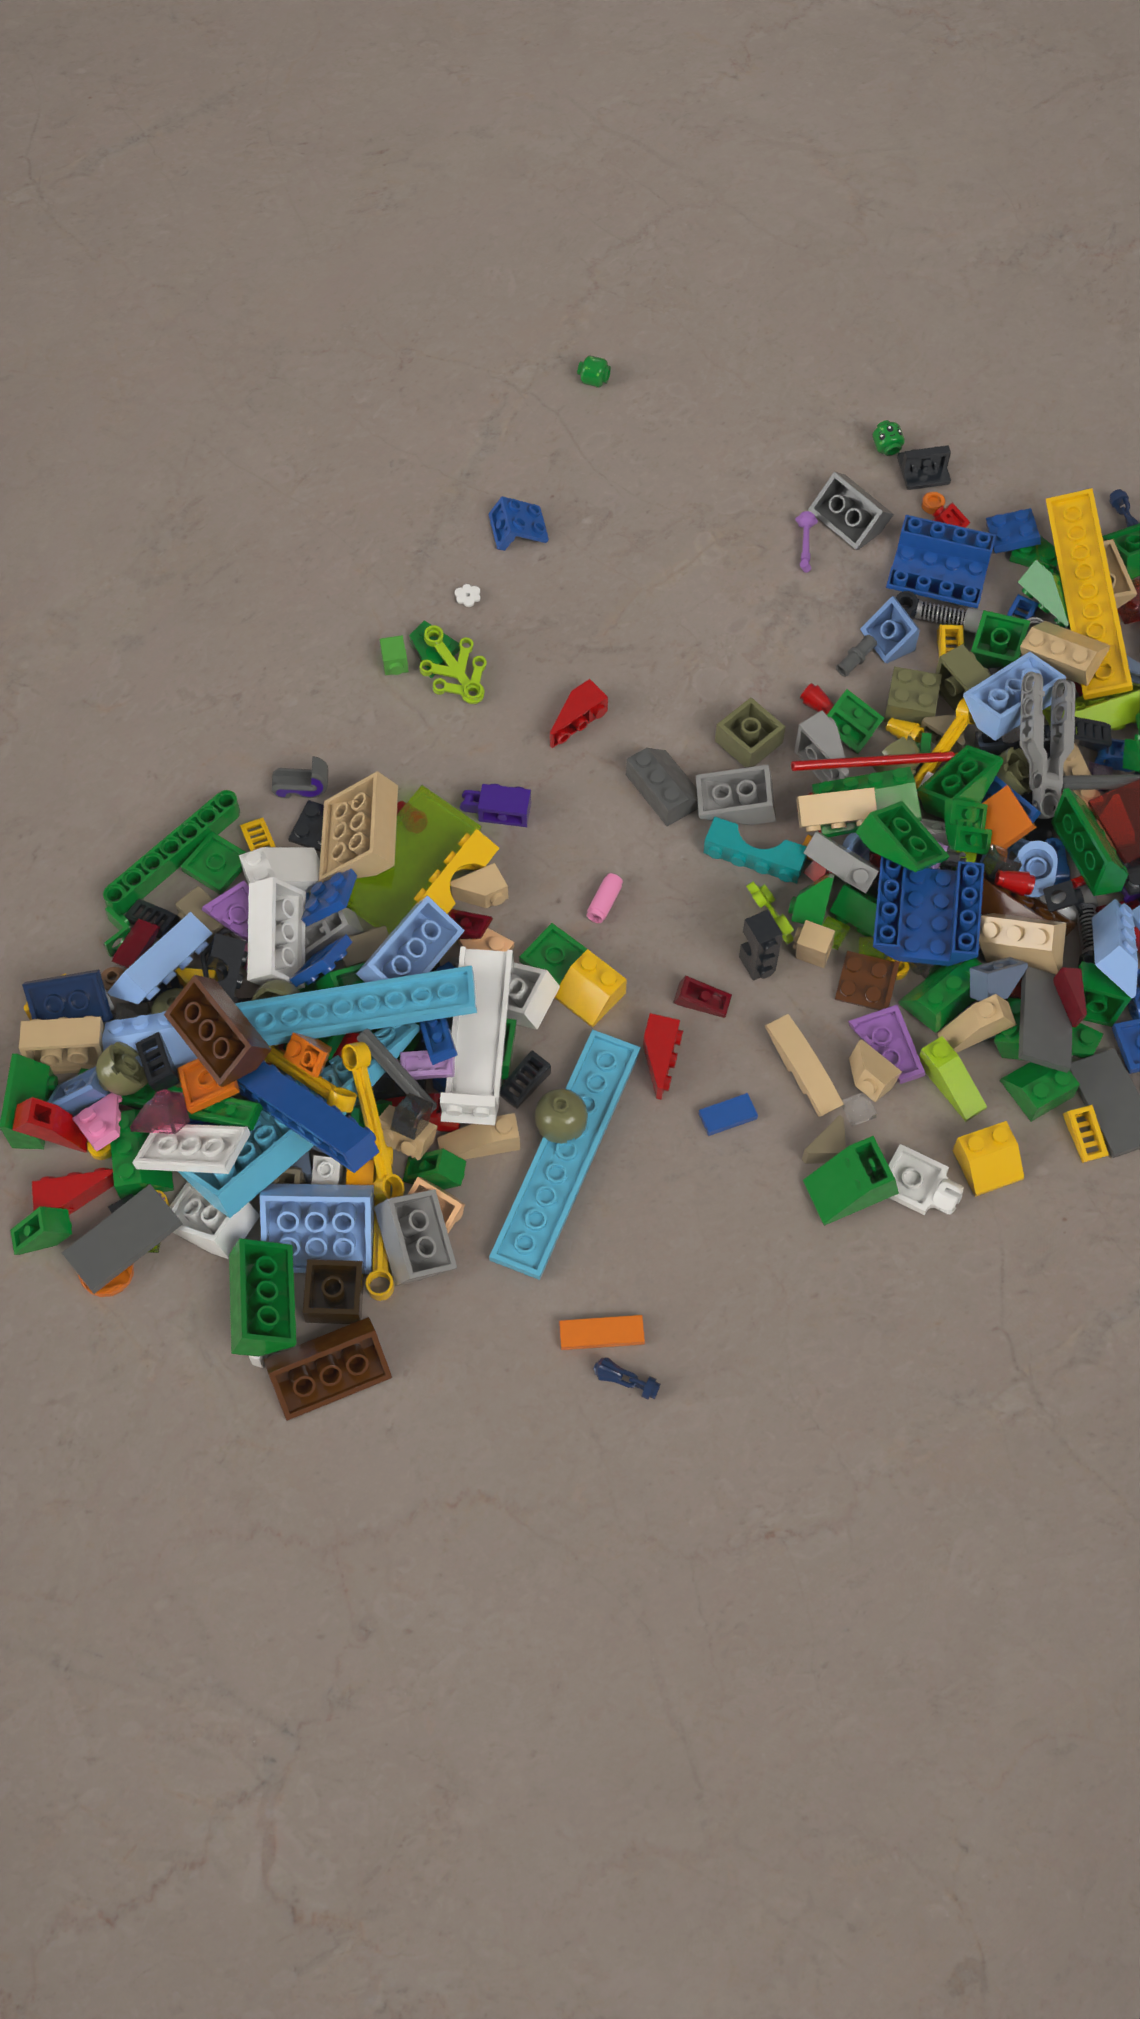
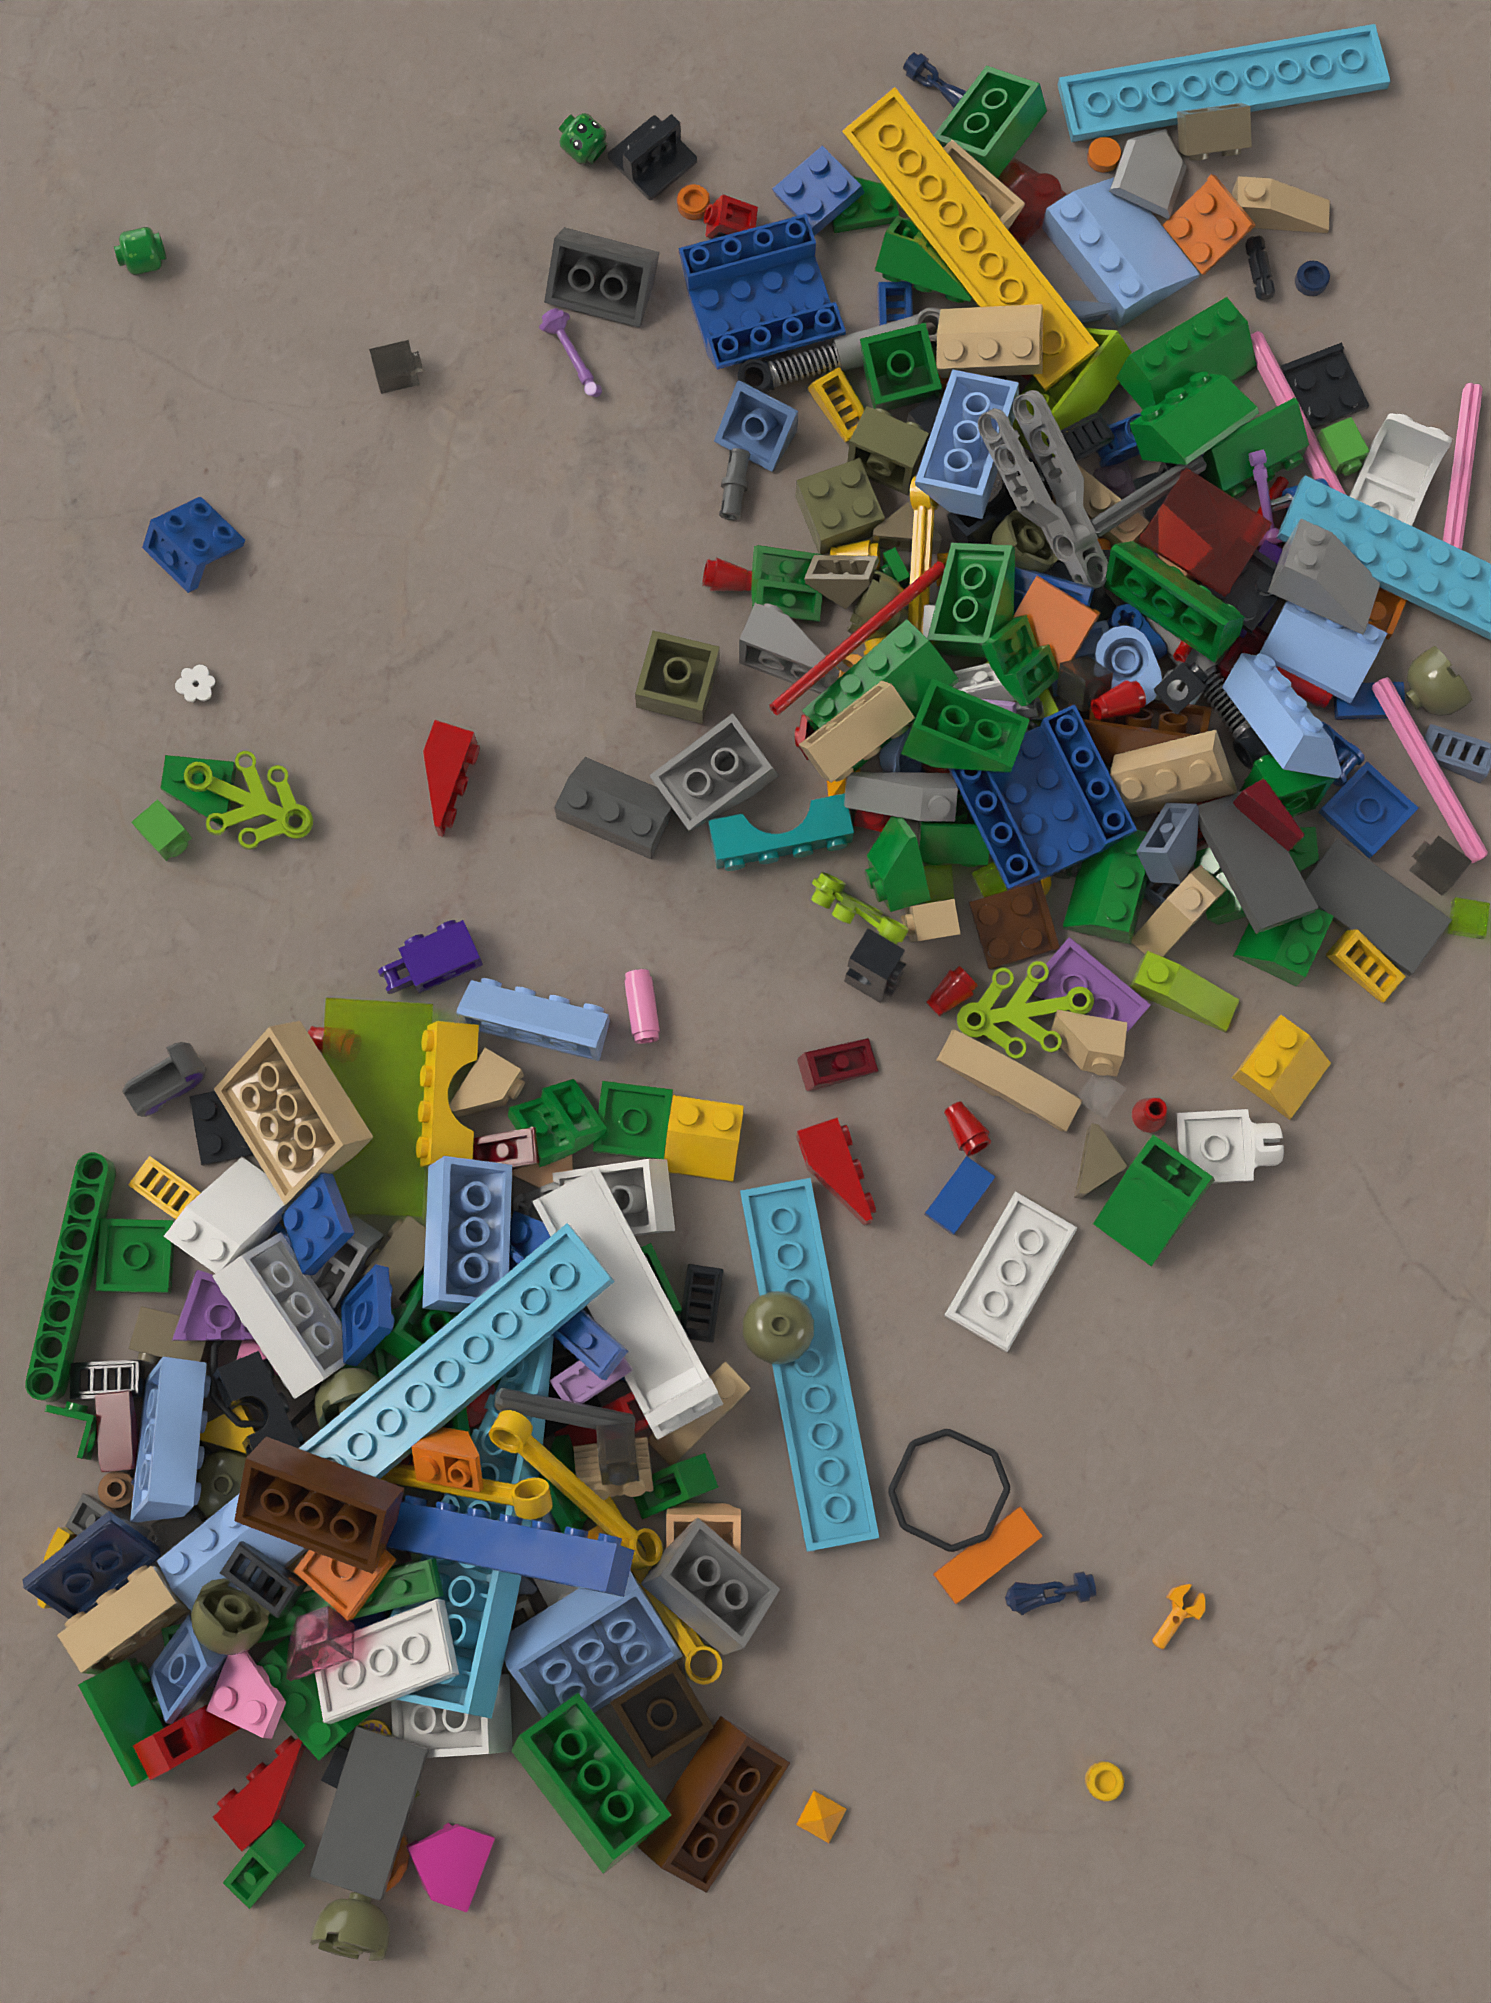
camera: 35 degrees left, 15 degrees up
(62, 1298) = (352, 1928): none -> olive cylinder
(148, 1302) = (451, 1863): none -> dark pink slope
(389, 1422) = (821, 1816): none -> light orange slope
(510, 931) = (562, 1121): none -> green slope
(535, 868) = (534, 1019): none -> light blue slope
(583, 1516) = (1104, 1781): none -> yellow tile
(624, 1308) = (925, 1536): none -> black piece
(697, 496) = (396, 366): none -> clear smoke brick
(702, 1445) = (1178, 1614): none -> light orange bar
(730, 1177) = (1010, 1272): none -> white tile
(758, 1079) = (967, 1129): none -> red cone
(802, 995) = (952, 991): none -> red cone
(838, 1029) = (1018, 1011): none -> lime plant
(884, 1134) = (1144, 1119): none -> red cone
(886, 731) = (841, 576): none -> dark tan slope

